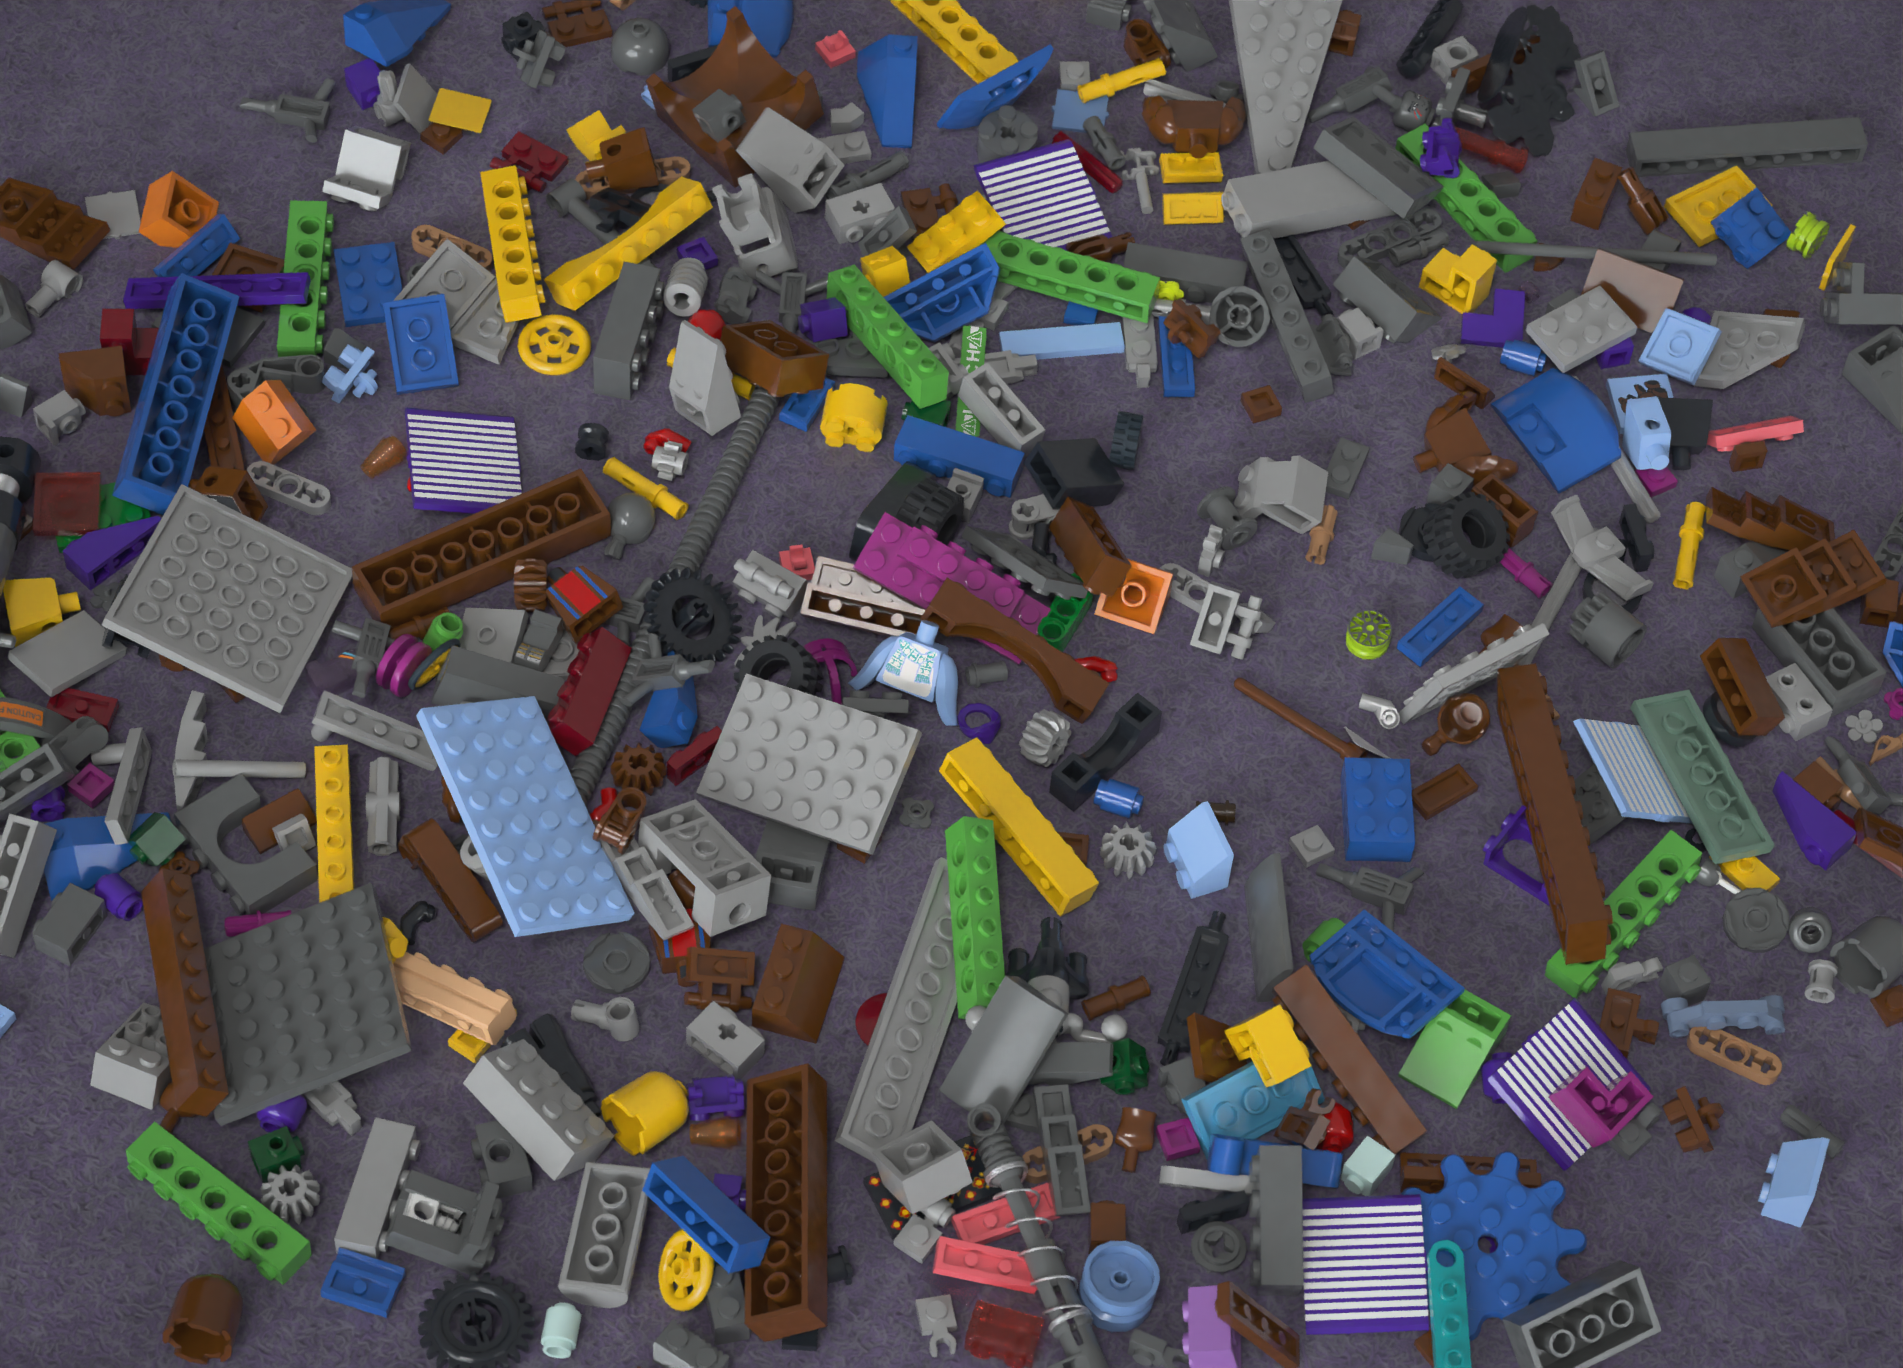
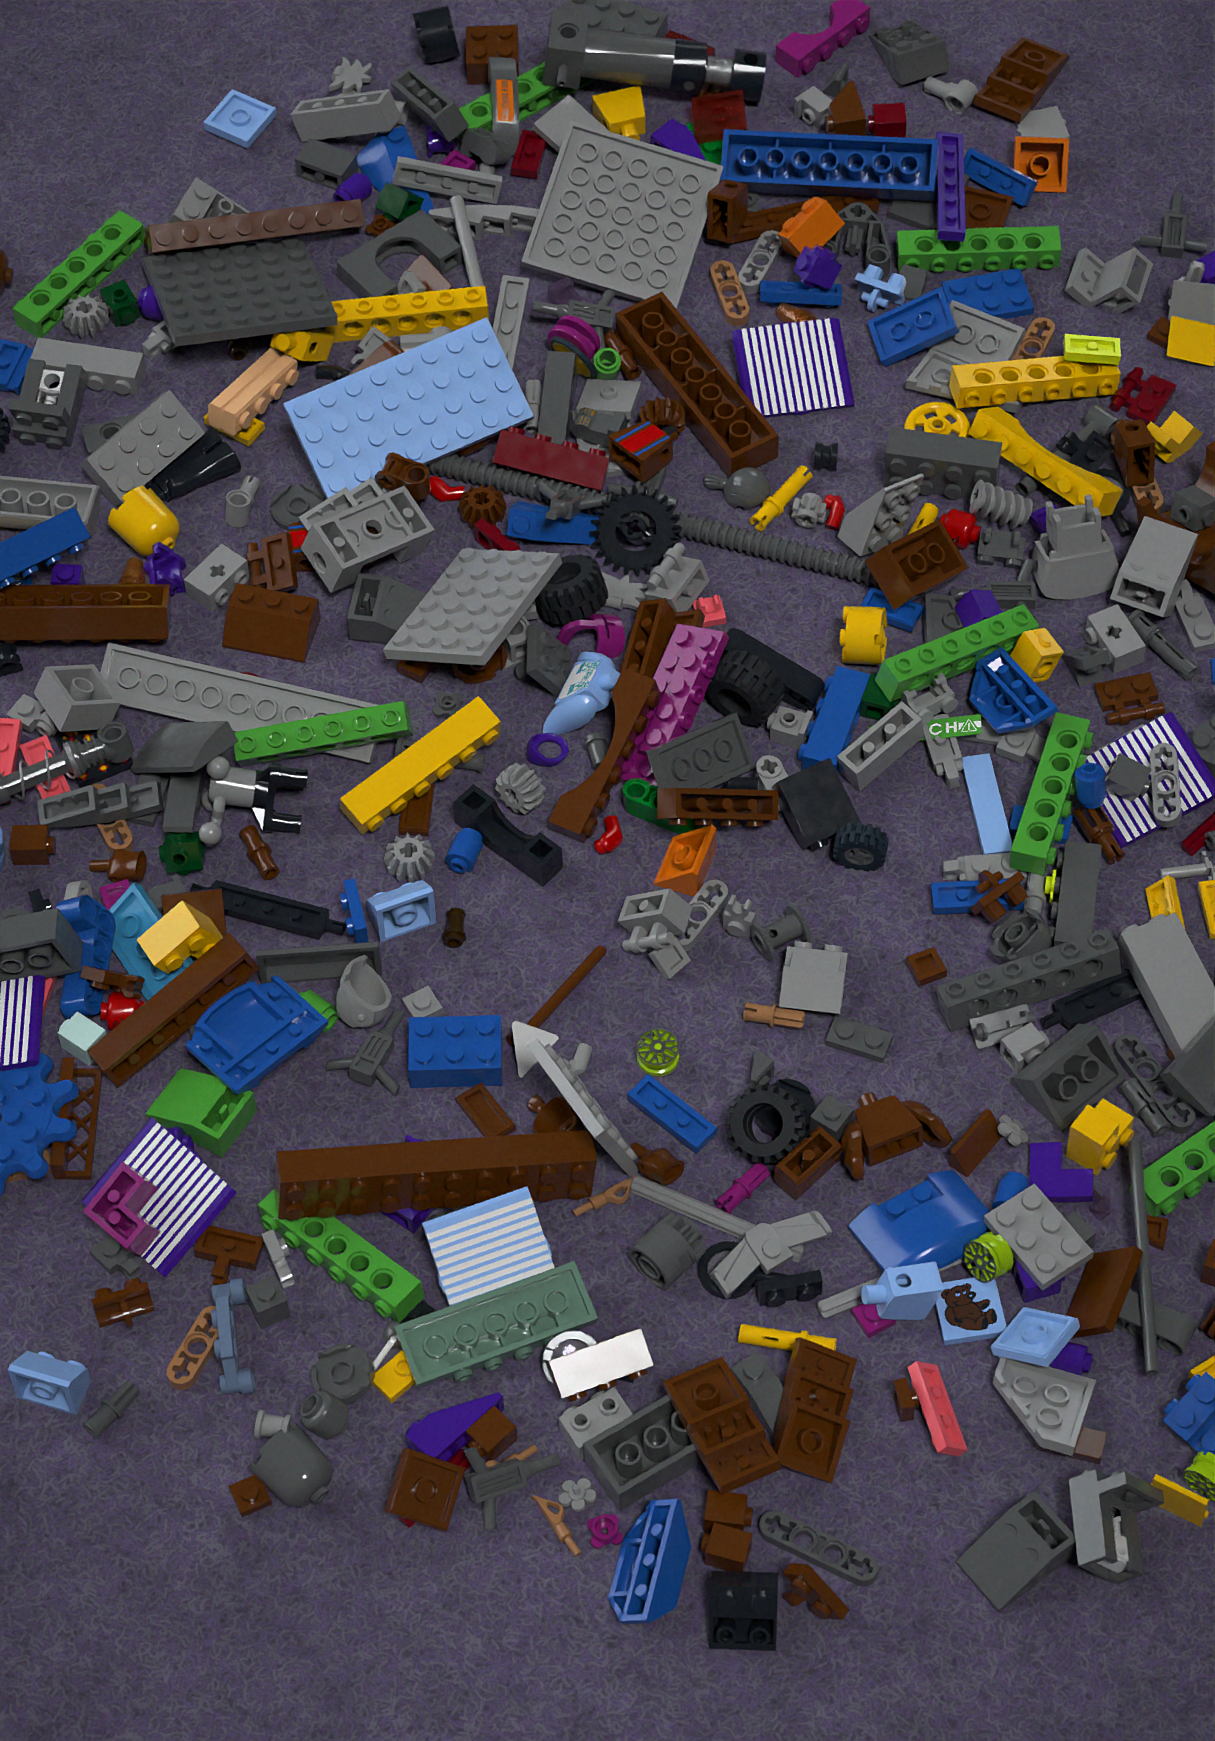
camera: 95 degrees right, 0 degrees up
(240, 924) = (330, 277): magenta axle -> none
(328, 419) = (817, 266): none -> dark purple brick
(340, 510) = (731, 283): none -> medium nougat beam
(347, 449) = (799, 294): none -> blue plate
(385, 880) = (368, 345): none -> light grey plate
(487, 180) = (1092, 349): none -> neon yellow plate
(956, 232) = (1087, 702): yellow plate -> none
(1050, 189) = (1172, 795): none -> light grey beam
(1054, 209) = (1127, 778): none -> dark grey brick
(1068, 233) = (1090, 785): none -> blue brick
(1209, 896) = (351, 901): none -> blue plate
(1319, 890) = (362, 995): none -> light grey helmet
(1602, 371) = (990, 1255): none -> lime wheel
(1689, 428) = (929, 1332): black torso -> none

